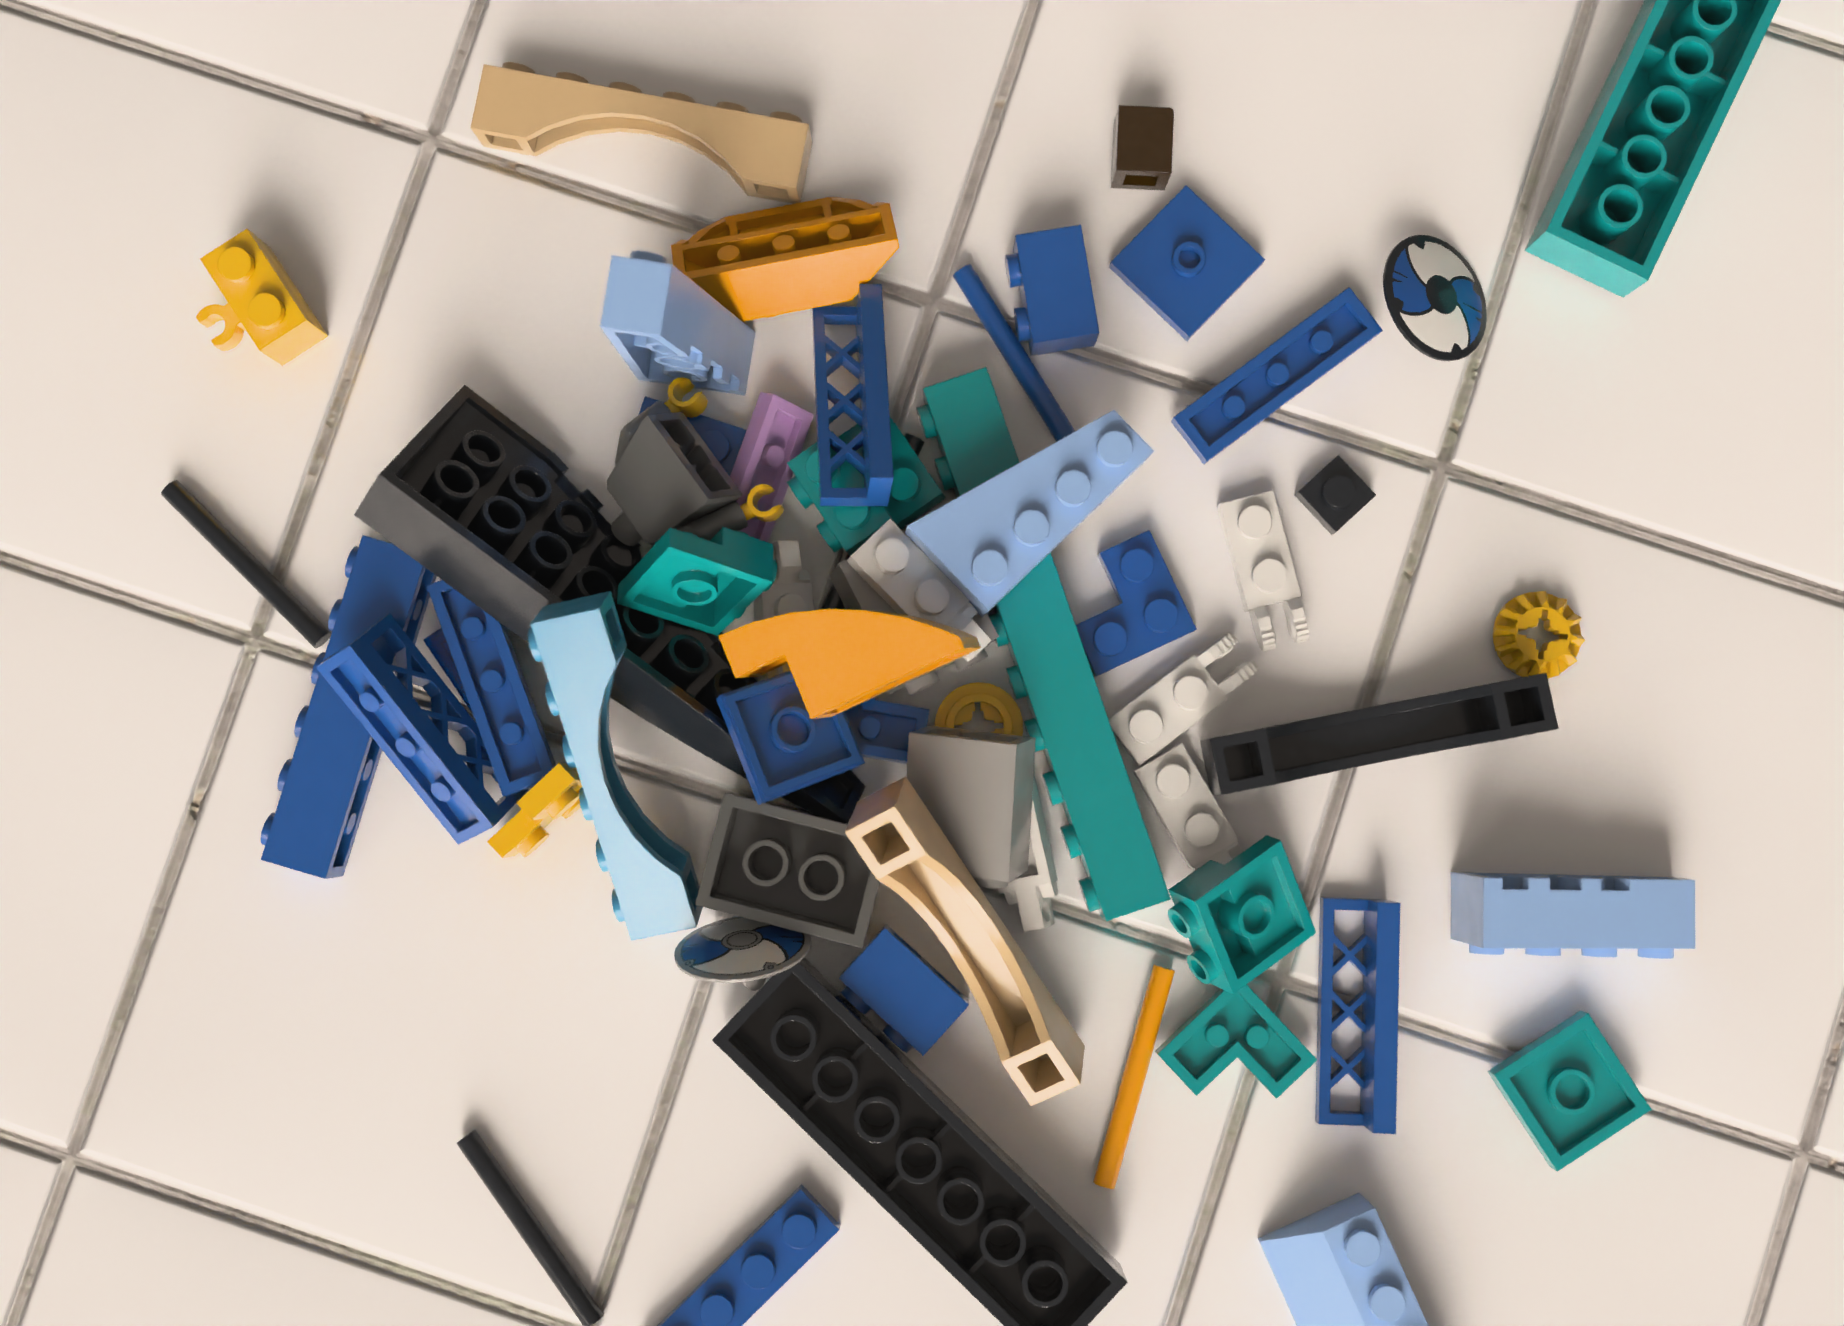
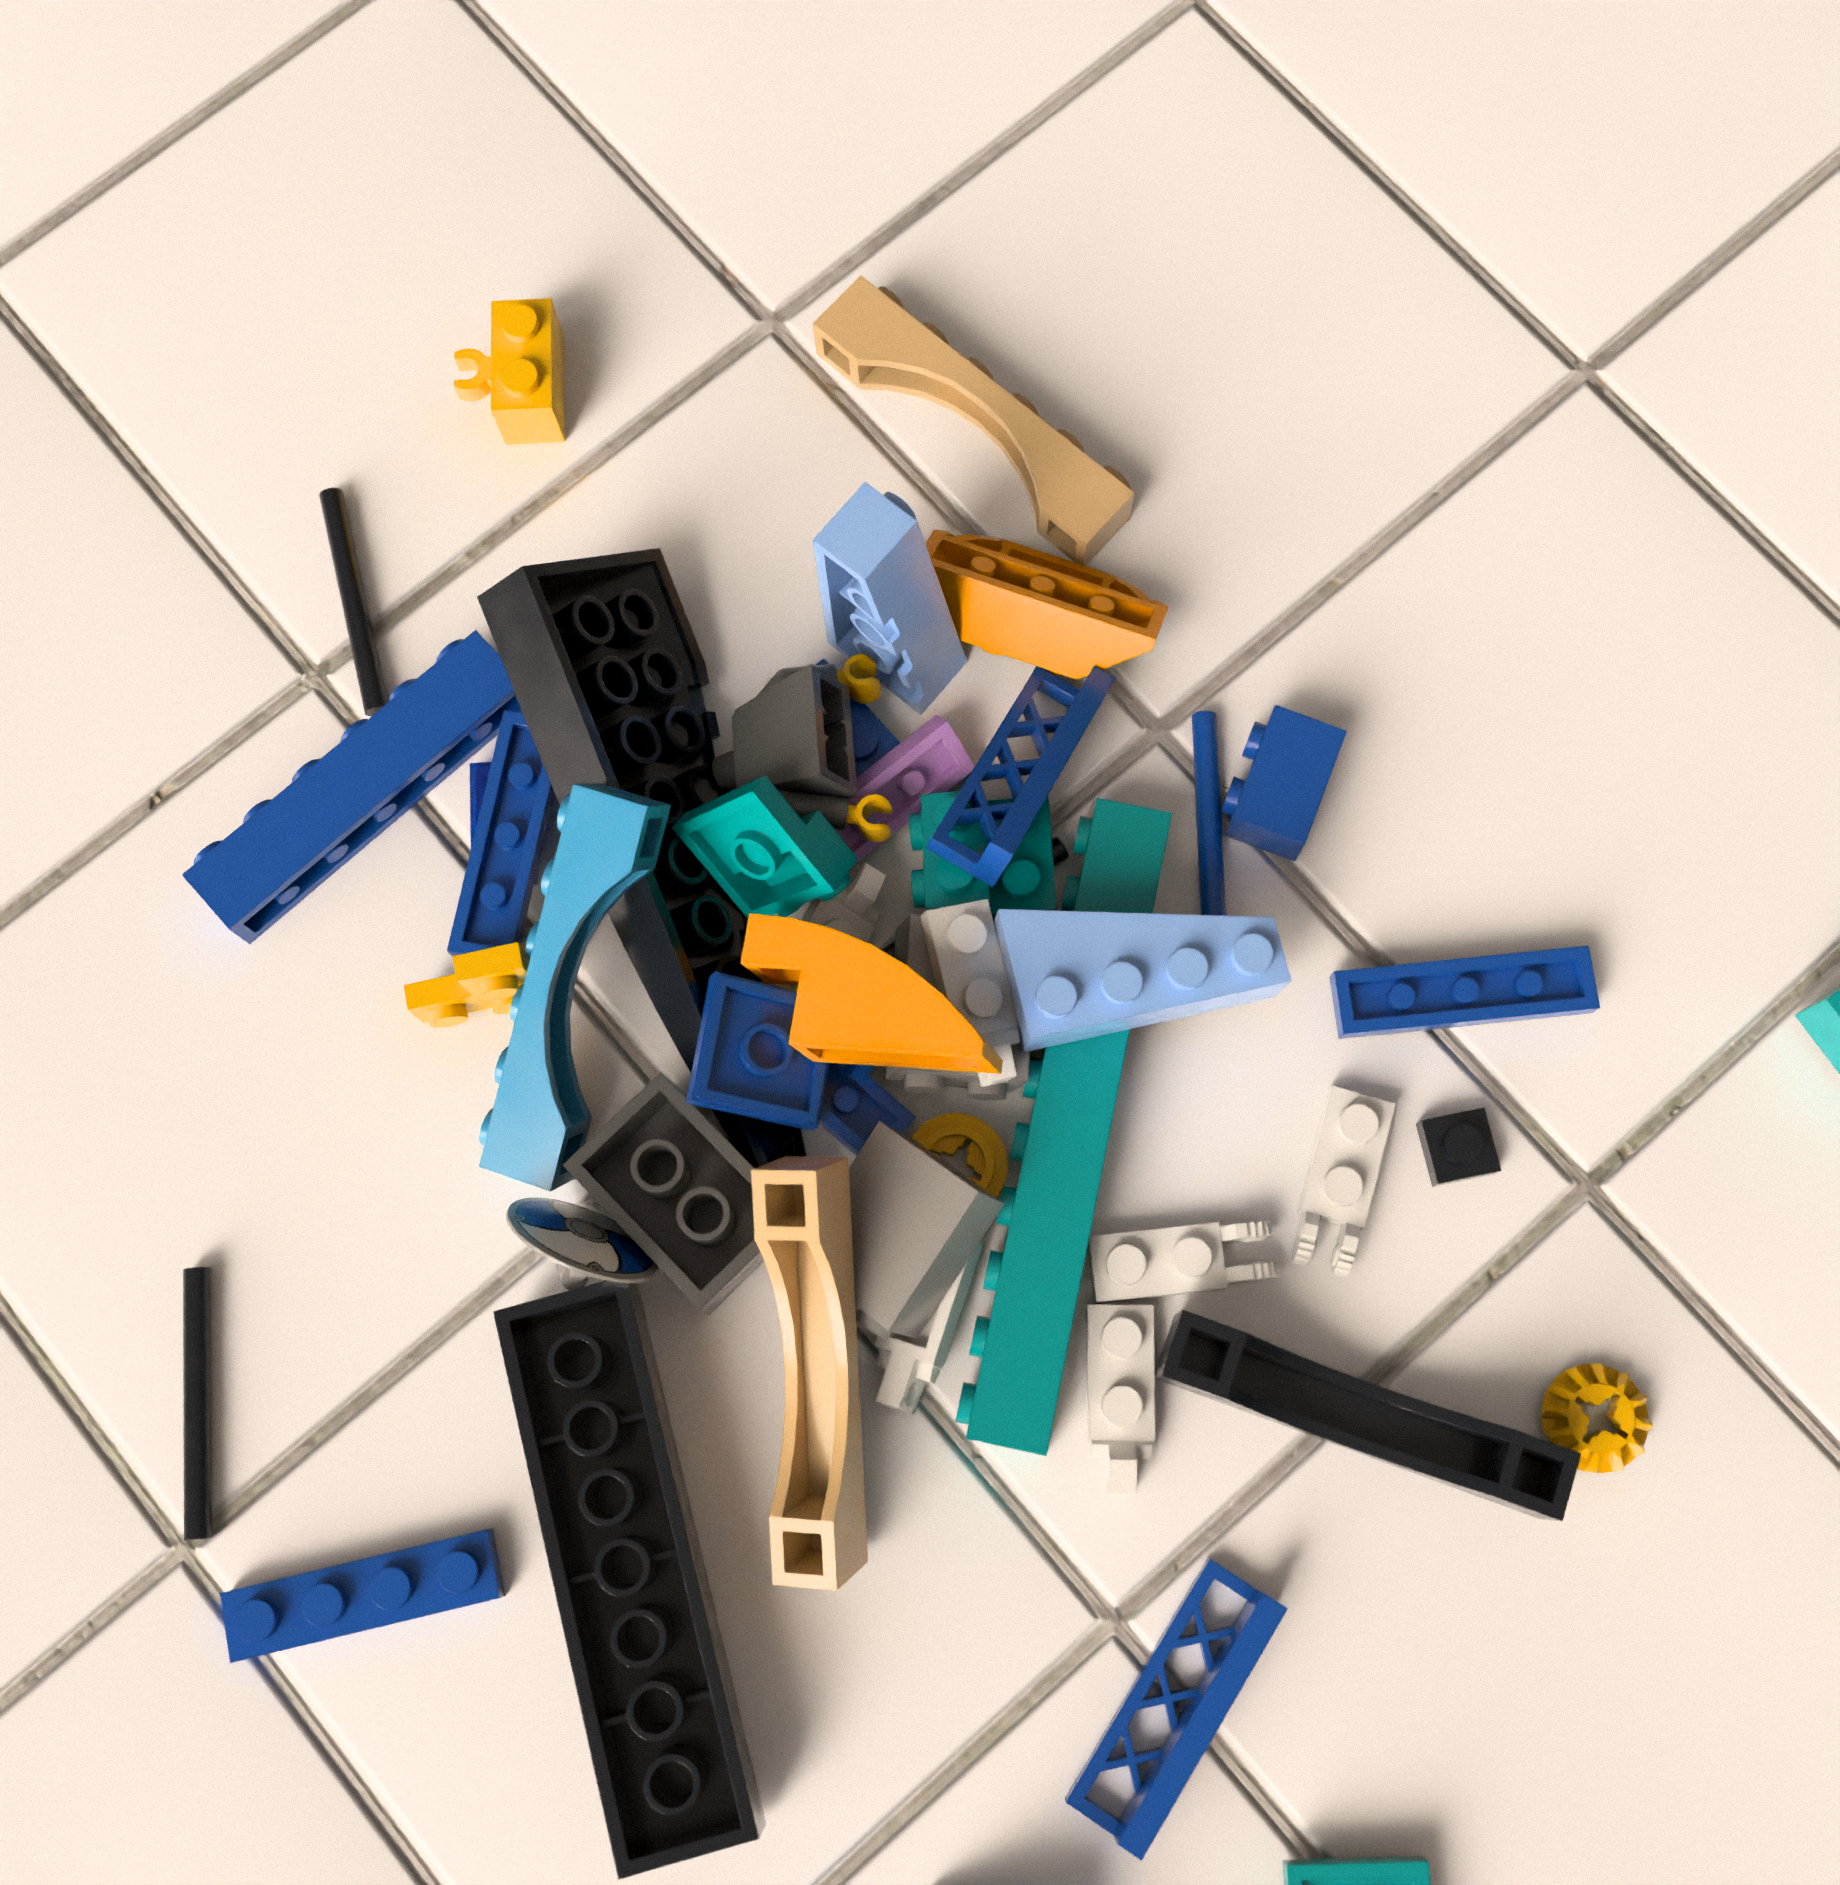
camera: 30 degrees right, 10 degrees down
(416, 737) = (401, 842): blue fence -> none
(902, 991) = (715, 1386): blue brick -> none
(1133, 1077) = (898, 1628): light orange bar -> none
(1142, 147) = (1451, 696): dark brown panel -> none
(1148, 611) = (1194, 1155): blue plate -> none
(1186, 263) = (1434, 833): blue plate -> none
(1230, 1029) = (1040, 1640): teal plate -> none
(1240, 915) = (1111, 1519): teal plate -> none
(1434, 298) = (1672, 1006): shield -> none
(1572, 913) = (1475, 1737): light blue wedge -> none

